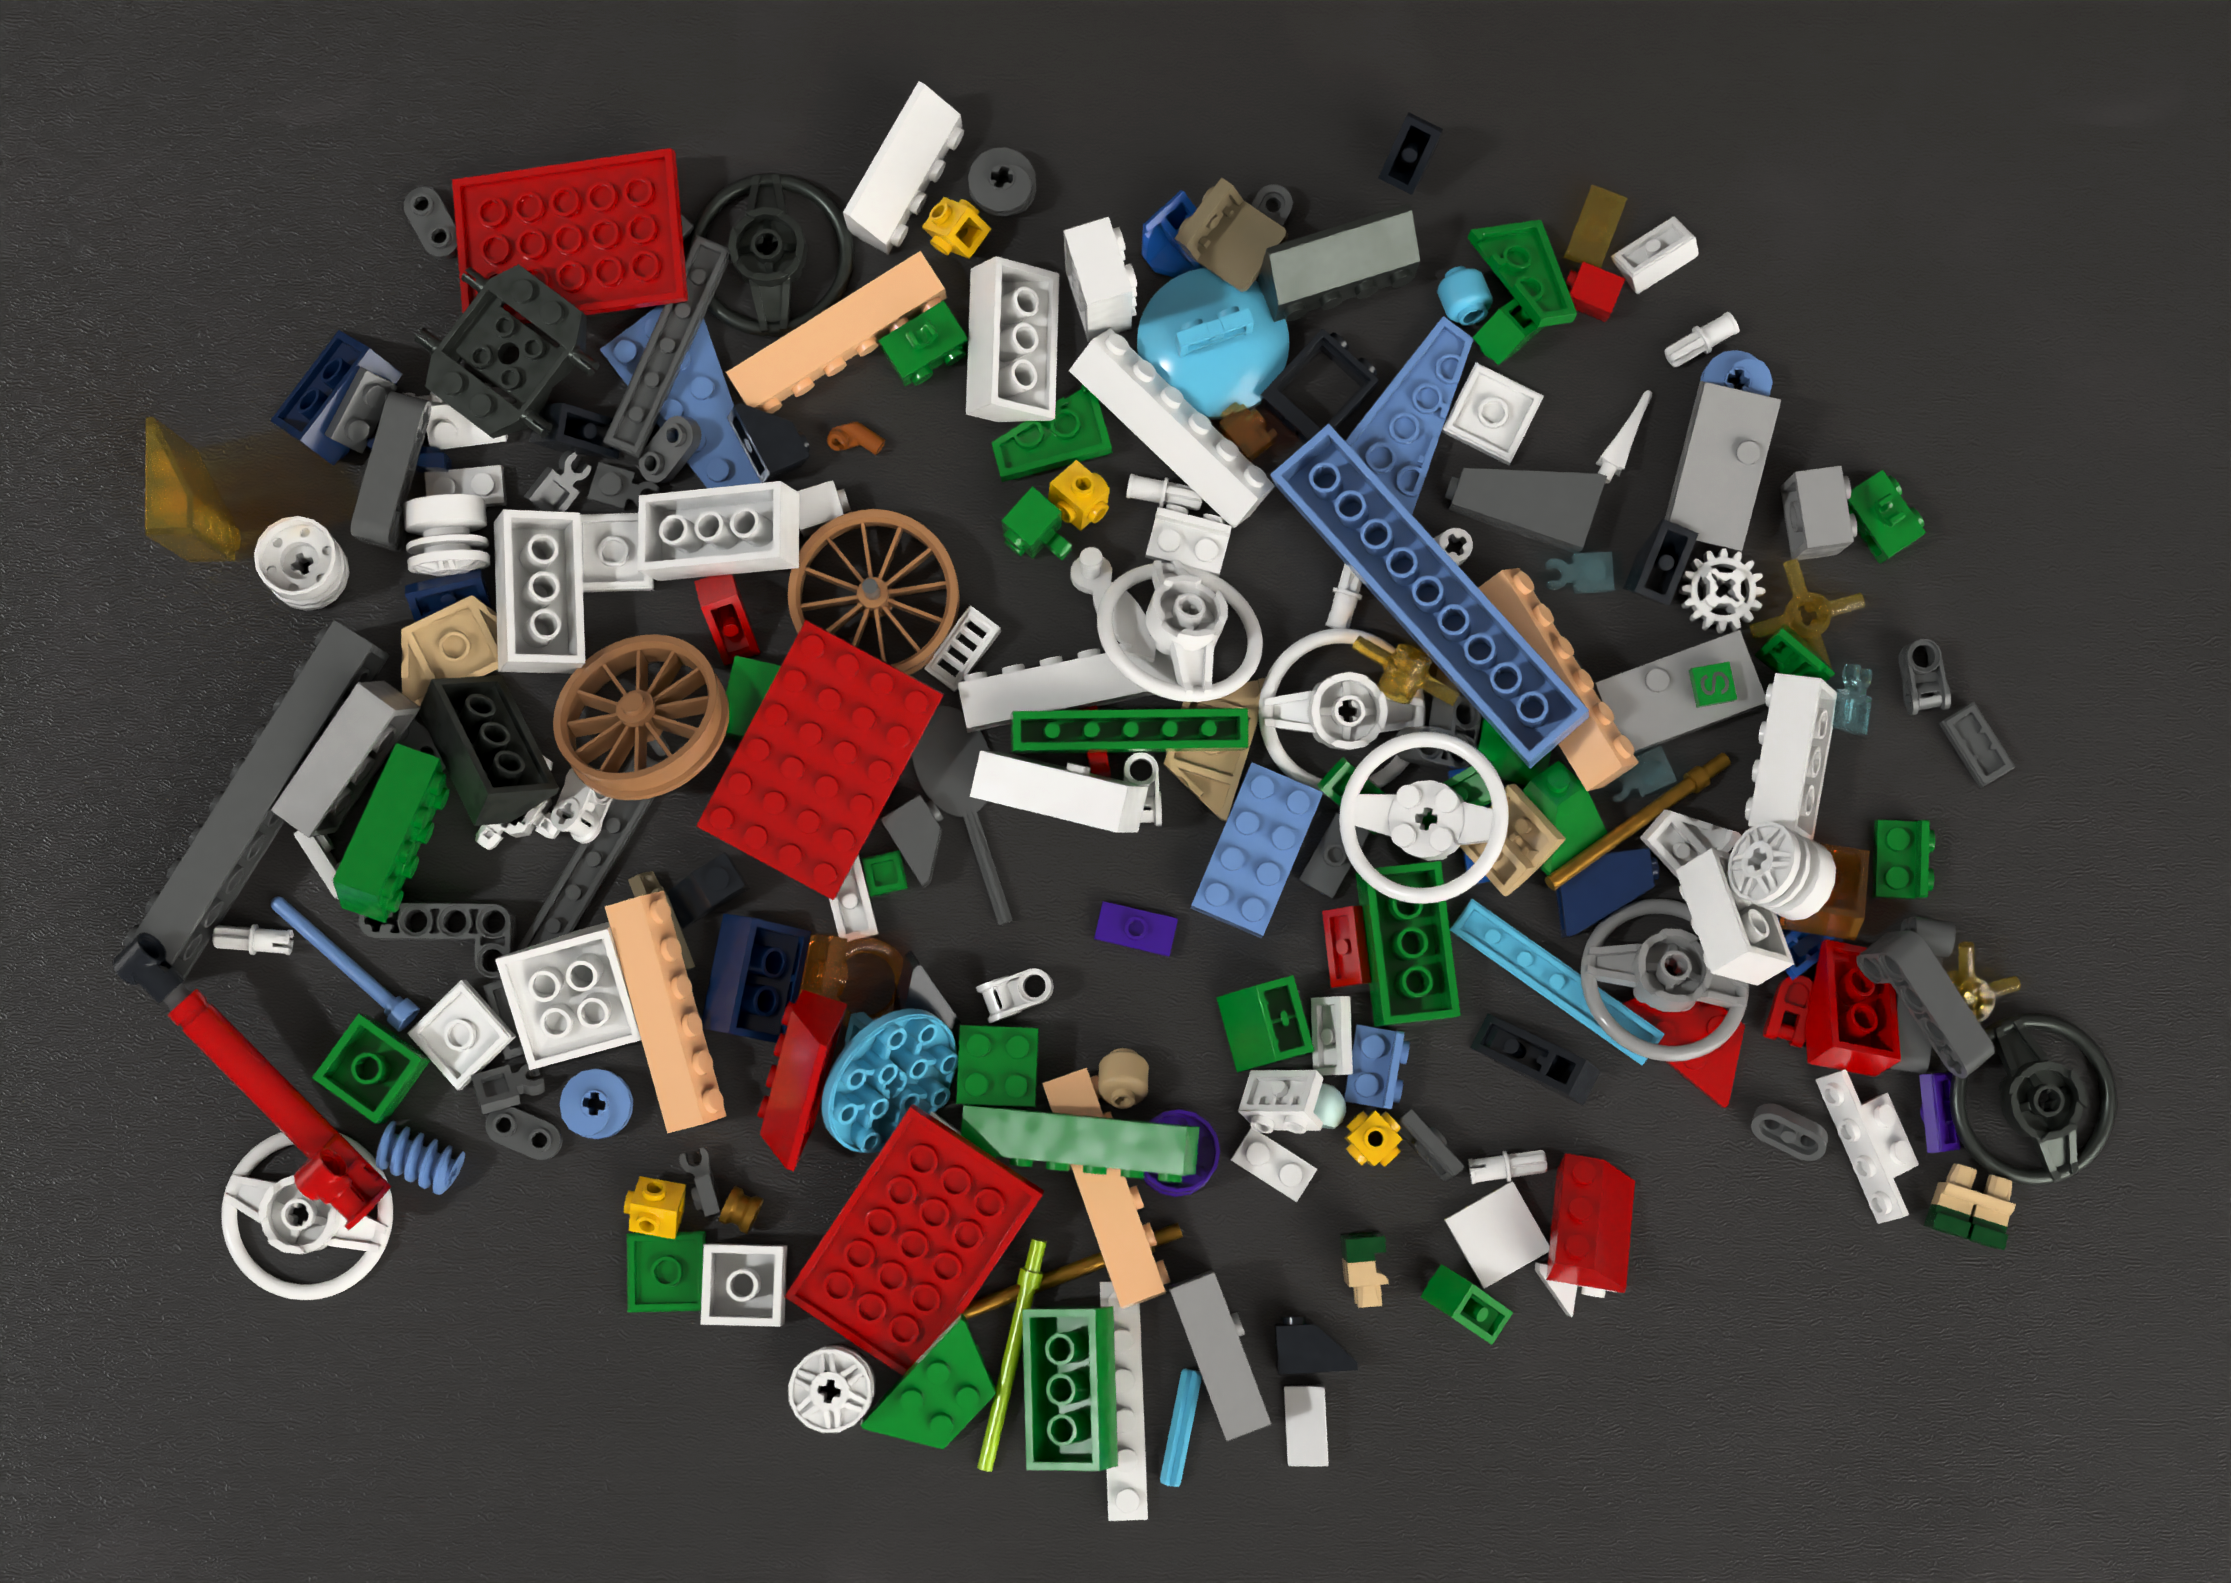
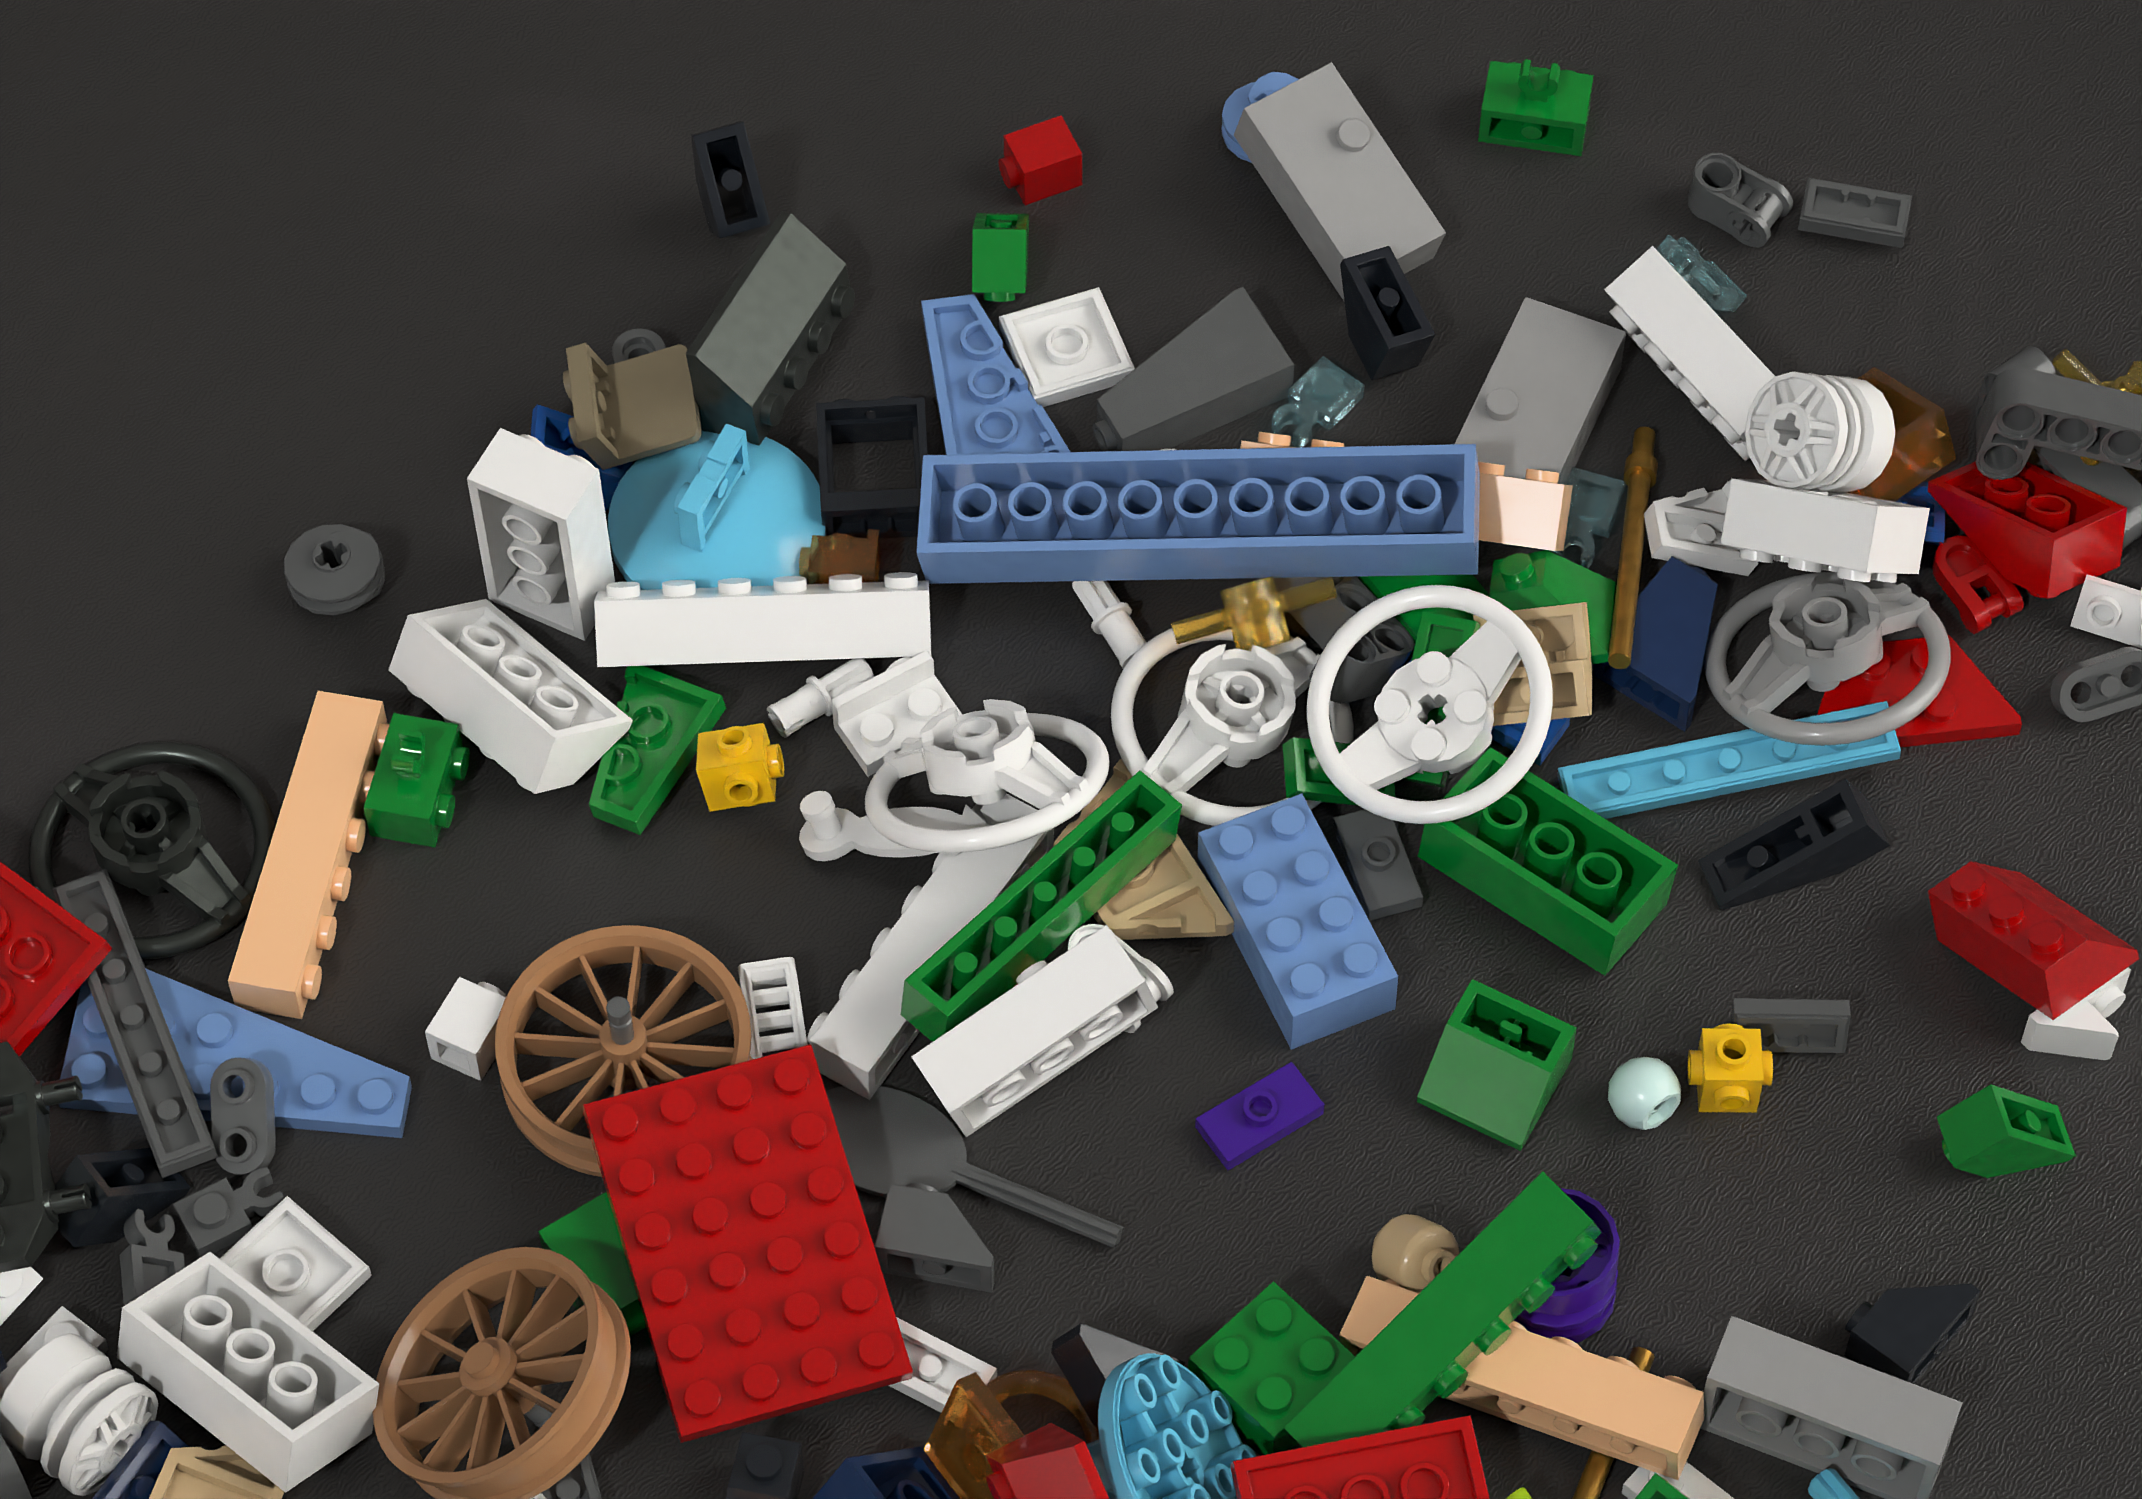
camera: 45 degrees left, 25 degrees down
(718, 531) = (388, 1127): white brick -> none
(726, 617) = (476, 1211): red slope -> none
(768, 441) = (343, 1010): black slope -> none
(854, 435) = (431, 933): dark orange arm -> none
(885, 873) = (938, 1309): green tile -> none
(903, 170) = (219, 640): white slope -> none
(956, 227) = (332, 643): yellow brick -> none
(1013, 994) = (1203, 1295): white piece -> none
(1035, 525) = (723, 827): green brick -> none
(1273, 1164) = (1663, 1199): white plate -> none
(1282, 1100) = (1600, 1117): white bracket -> none
(1306, 1425) = (1999, 1411): white slope -> none
(1332, 1035) = (1600, 1030): white plate -> none
(1346, 946) = (1489, 925): red plate -> none
(1360, 1267) = (1865, 1191): hips -> none
(1376, 1067) = (1651, 1005): medium blue bracket -> none
(1465, 295) = (921, 267): medium azure head -> none
(1497, 1234) = (1952, 1044): white tile -> none
(1507, 1166) = (1887, 974): white axle -> none
(1528, 269) = (957, 189): green wing -> none
(1595, 226) = (976, 109): clear yellow plate -> none
(1617, 453) = (1224, 267): white piece -> none
(1656, 254) = (1064, 84): white slope -> none
(1701, 340) = (1192, 114): white axle -> none
(1711, 580) = (1468, 293): white gear -> none
(1712, 684) = (1559, 356): green tile -> none
(1791, 655) = (1588, 270): green slope -> none
(1811, 602) = (1567, 241): clear yellow bar -> none
(1818, 513) = (1475, 146): light grey brick -> none
(1902, 859) = (1913, 356): green bracket -> none

